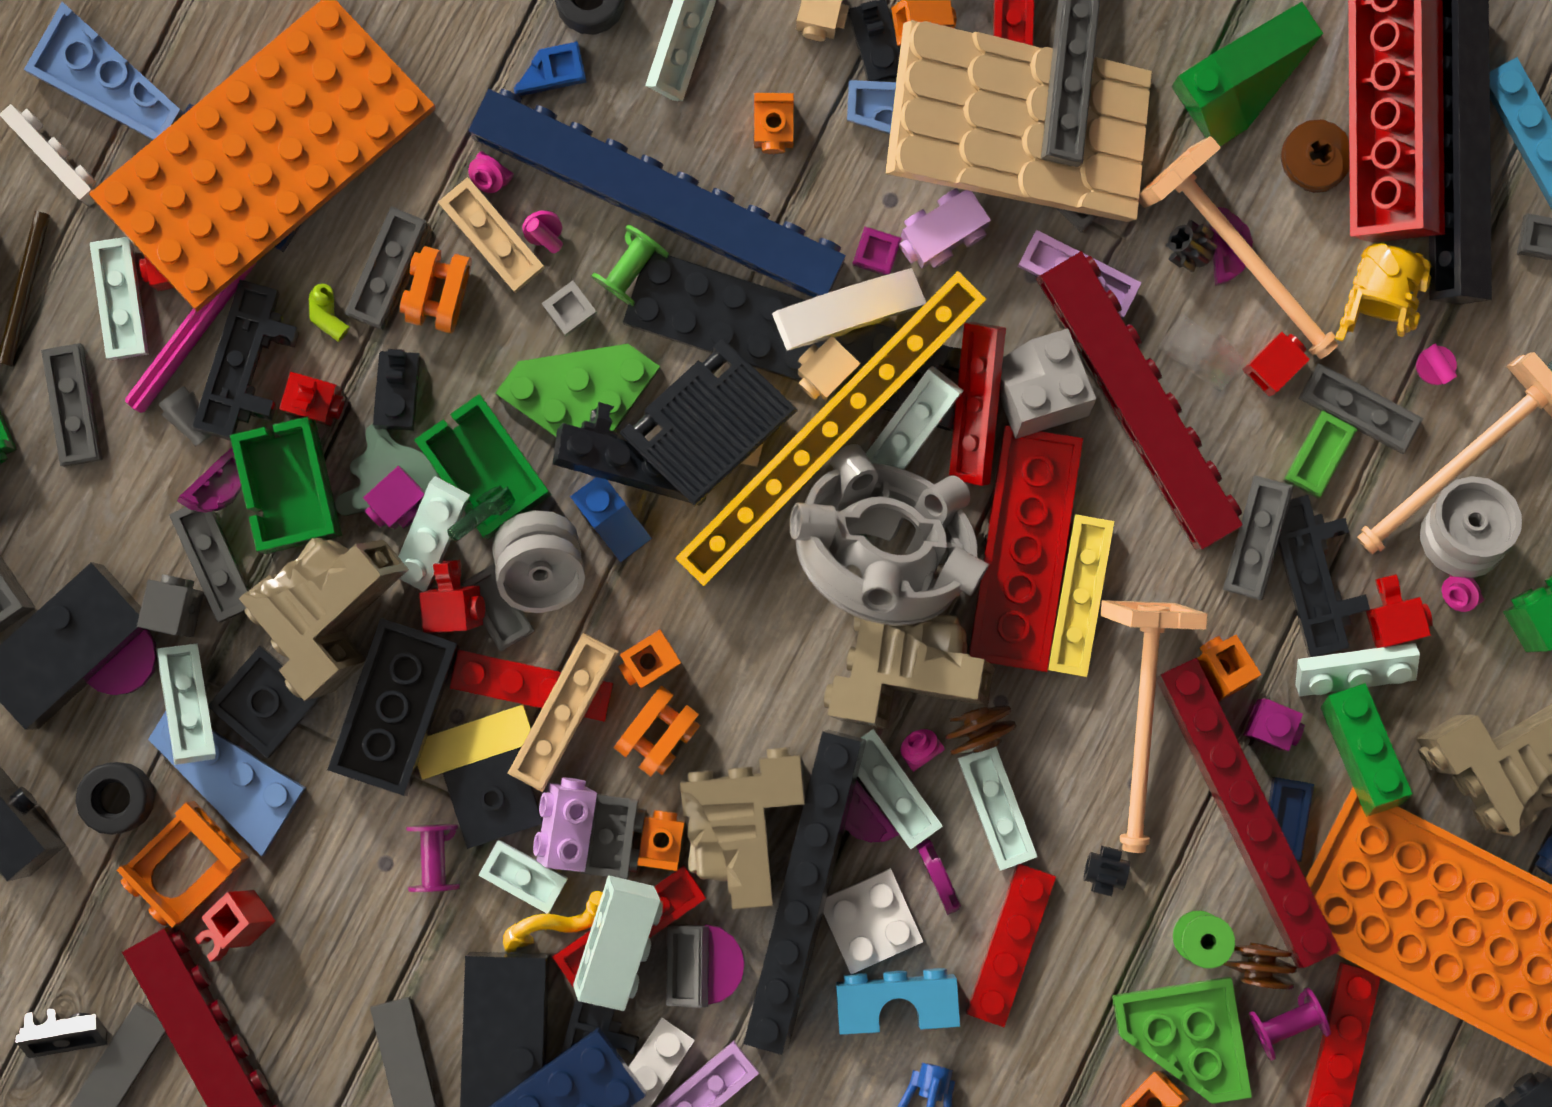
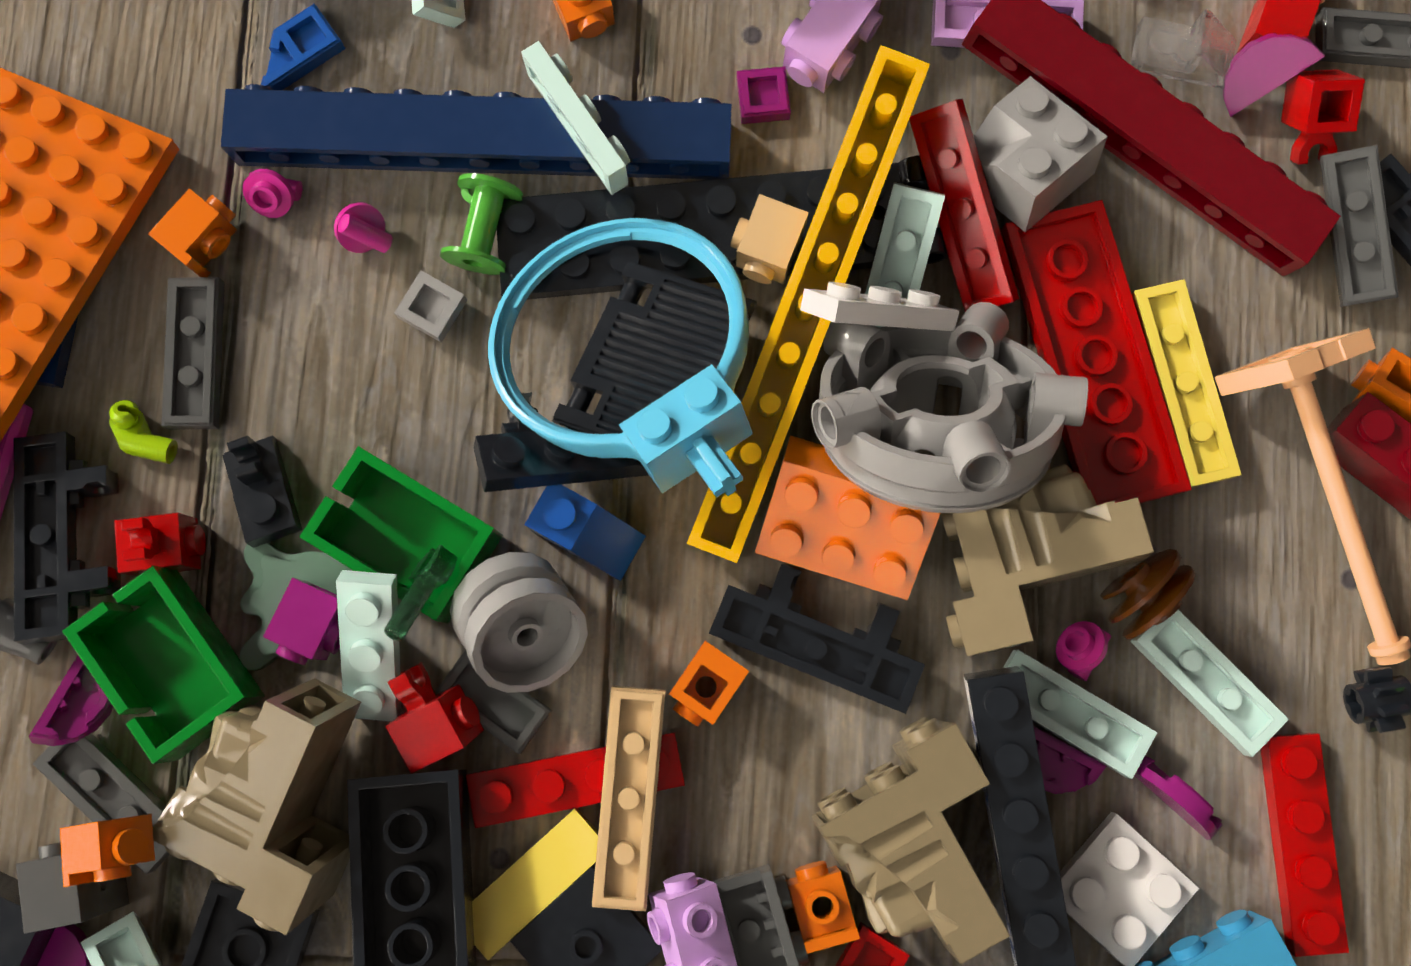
camera: 20 degrees left, 5 degrees down
(210, 594) = (105, 849): none -> orange brick
(424, 181) = (195, 230): none -> orange brick
(426, 269) = (239, 334): orange brick -> none
(491, 235) = (302, 260): tan plate -> none
(572, 384) = (460, 401): bright green plate -> none
(681, 727) = (771, 798): orange brick -> none
(707, 480) = (684, 427): none -> medium azure brick
(714, 644) = (856, 662): none -> black hinge
(730, 222) = (577, 116): none -> light aqua plate
(780, 593) = (839, 529): none -> orange brick
(849, 309) = (761, 162): white slope -> none
(876, 455) = (879, 307): none -> white plate
(1246, 392) = (1265, 66): none -> magenta tile
(1272, 439) = (1318, 106): none -> red brick
(1320, 454) = (1380, 106): bright green tile -> none

